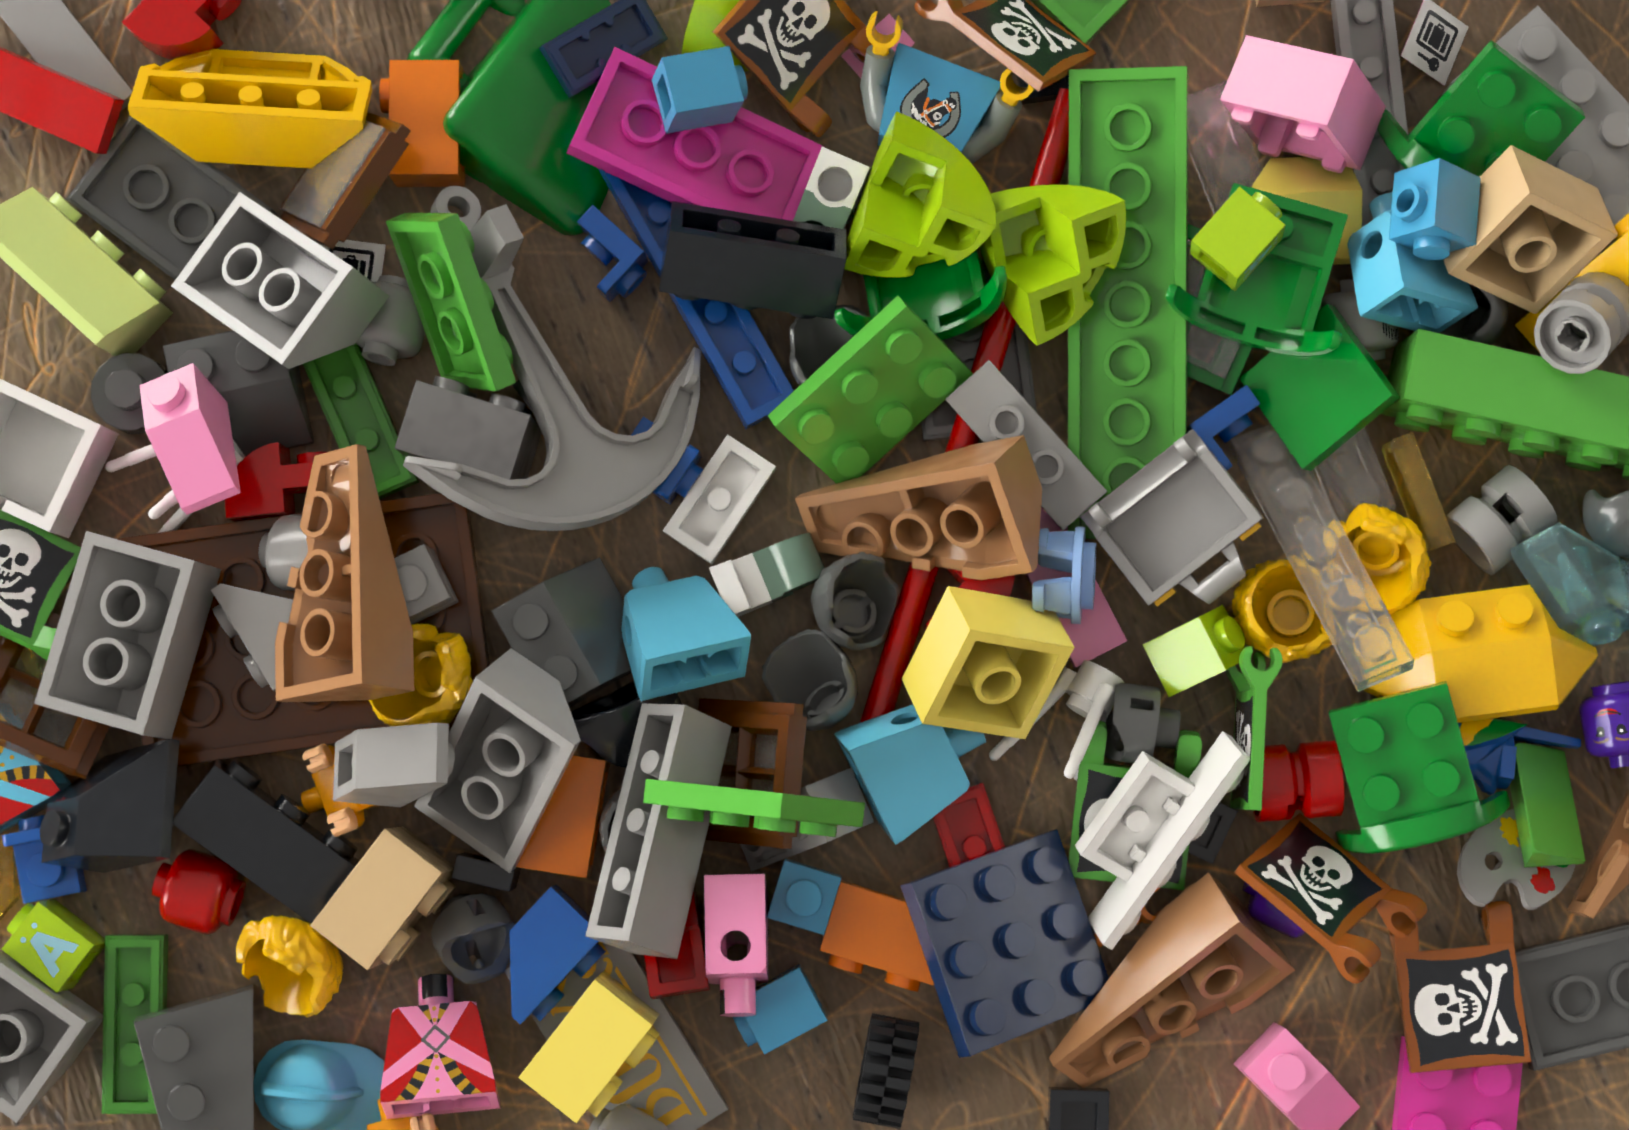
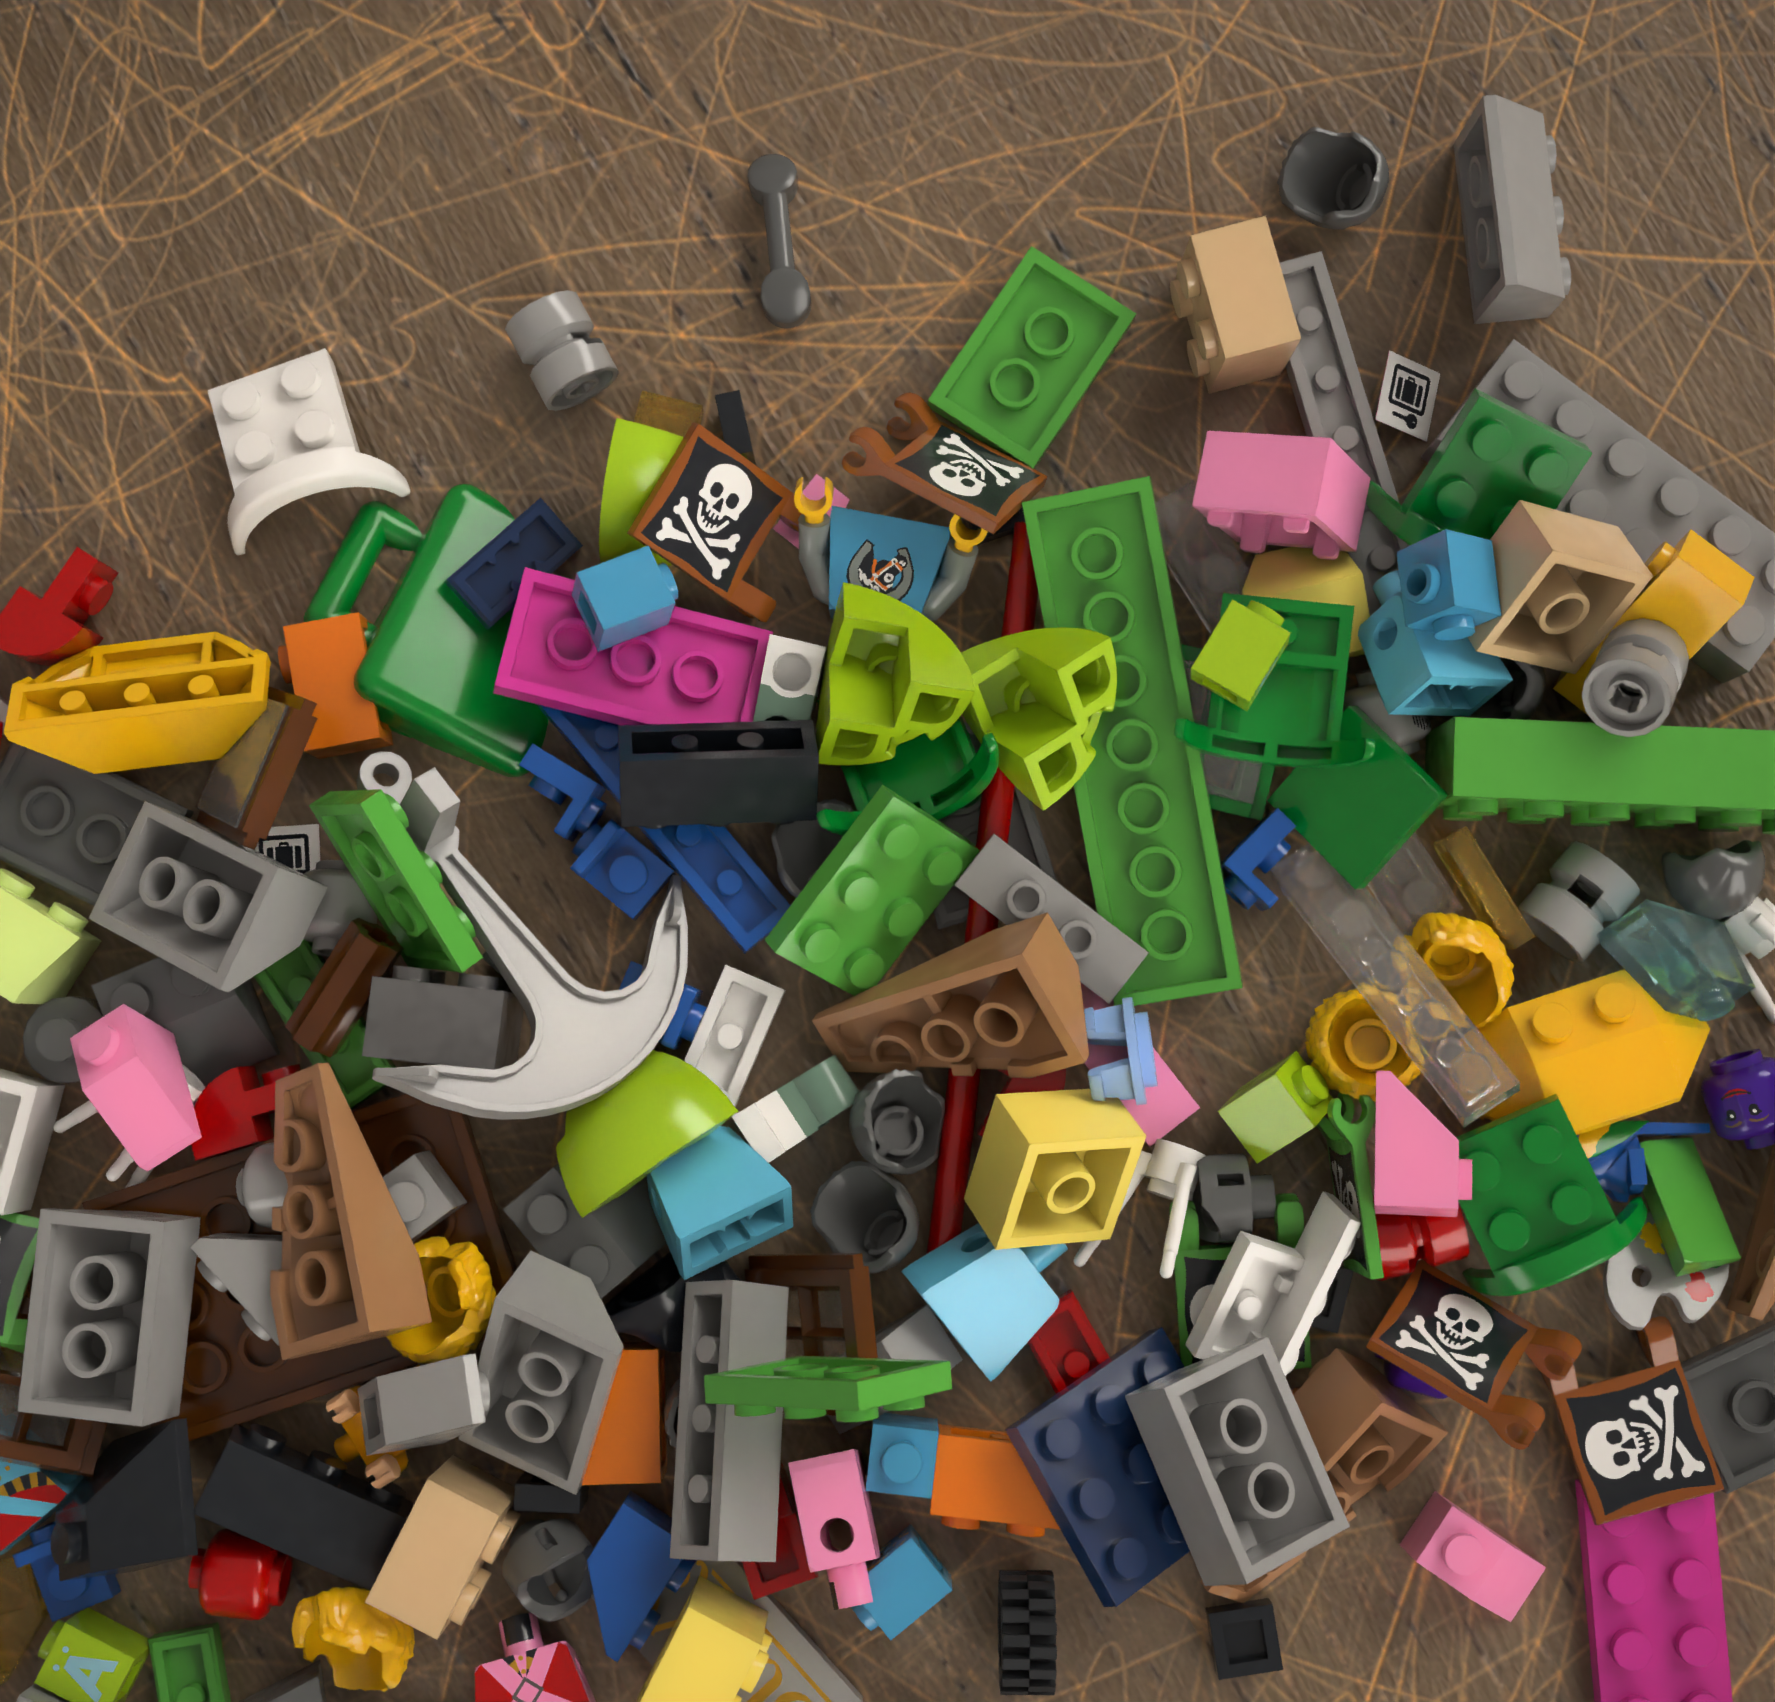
camera: 10 degrees left, 0 degrees up
(385, 389) = (343, 987): none -> reddish brown axle
(622, 559) = (637, 1128): none -> lime brick
(649, 332) = (620, 867): none -> blue bracket
(1101, 951) = (1237, 1463): none -> light grey slope
(1174, 521) = (1228, 973): light grey piece -> none
(1308, 710) = (1415, 1156): none -> bright pink slope

